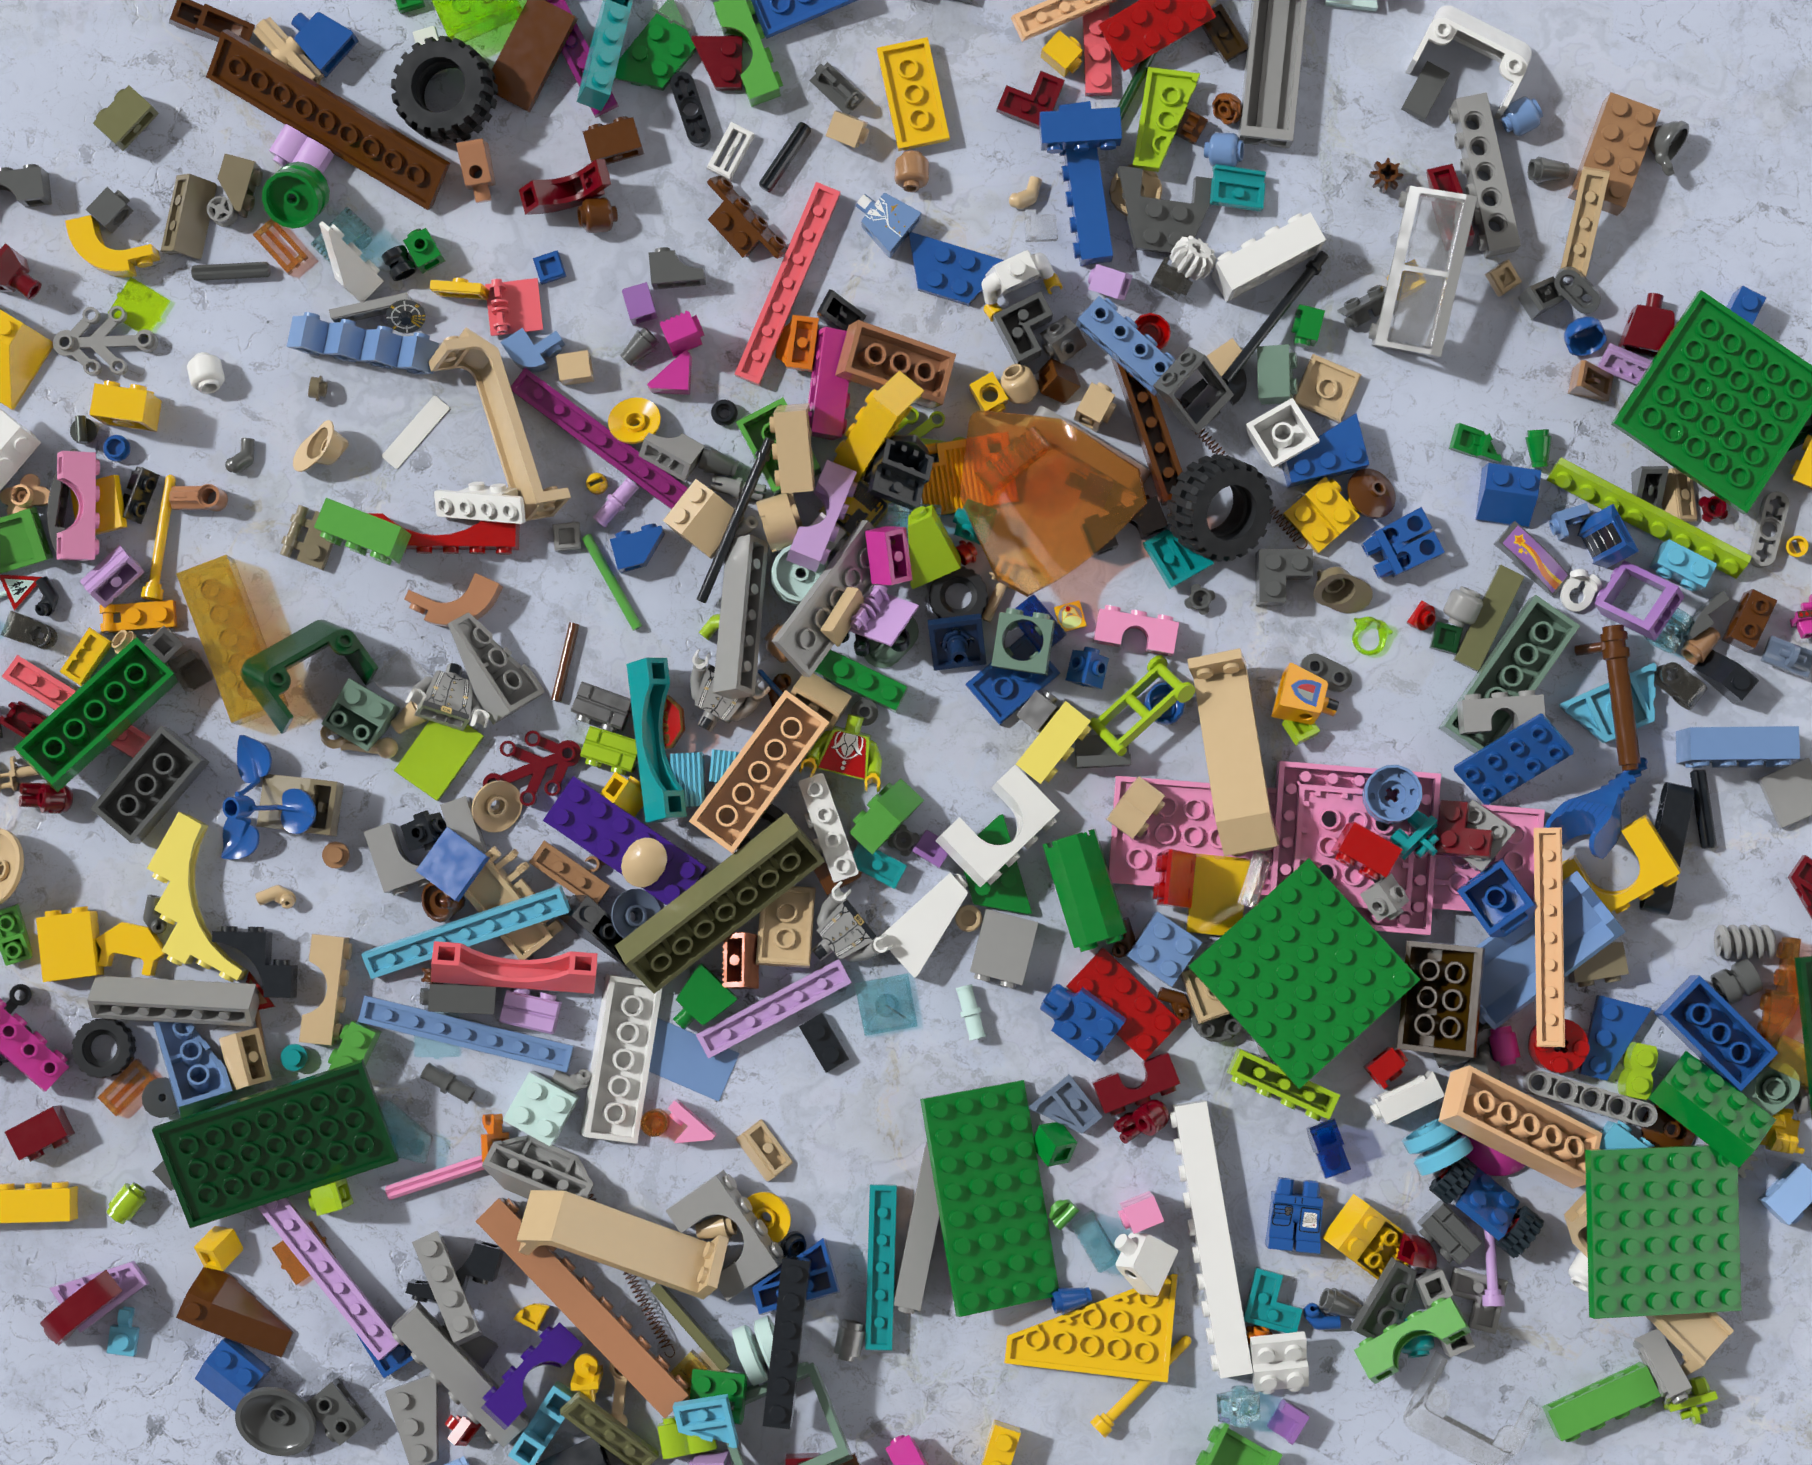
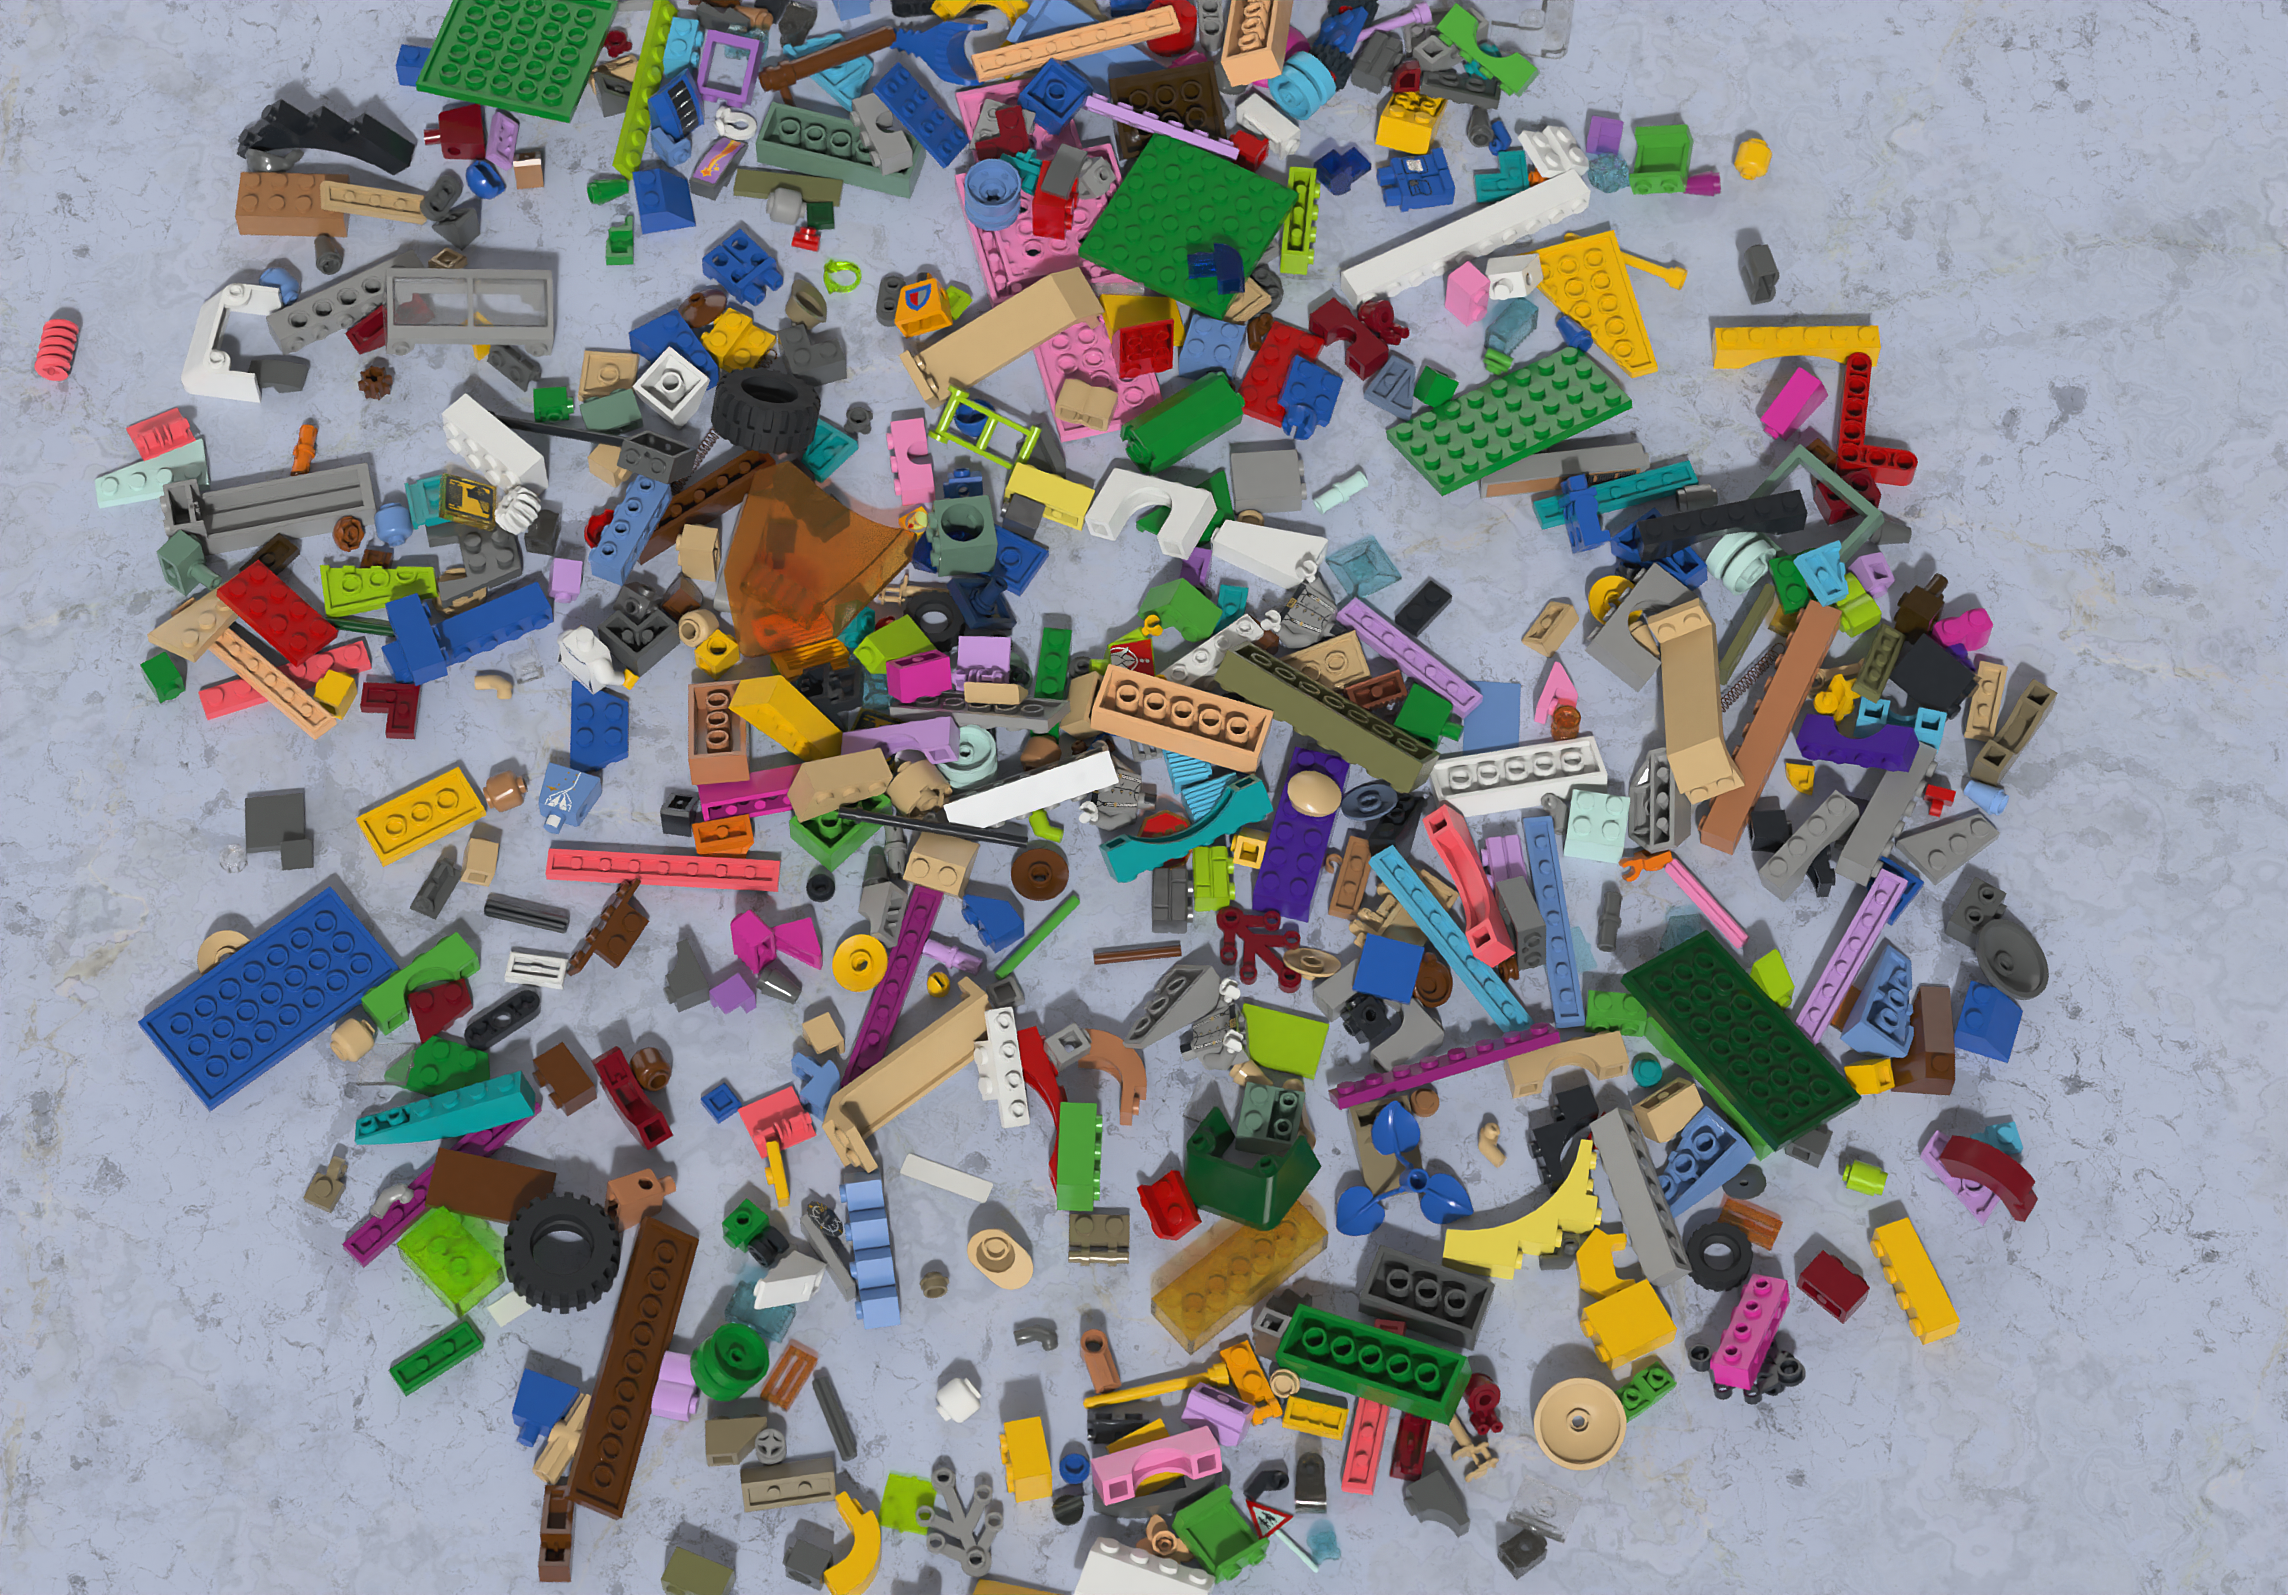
camera: 115 degrees left, 25 degrees down
(272, 1283) = (1882, 1012): none -> medium blue wedge
(313, 602) = (1169, 1206): none -> red bracket
(349, 879) = (1435, 1068): none -> magenta plate
(469, 559) = (1068, 1036): none -> light grey brick
(660, 590) = (1037, 864): none -> reddish brown dish
(852, 1220) = (1581, 515): none -> blue hips
(1222, 219) = (467, 502): none -> tile
(1232, 985) = (1224, 264): none -> clear blue brick
(1332, 94) = (304, 450): none -> orange pin
(1377, 862) = (1063, 171): none -> dark grey slope
(1423, 975) = (1149, 122): none -> lavender plate
(1675, 200) = (322, 129): none -> black arch

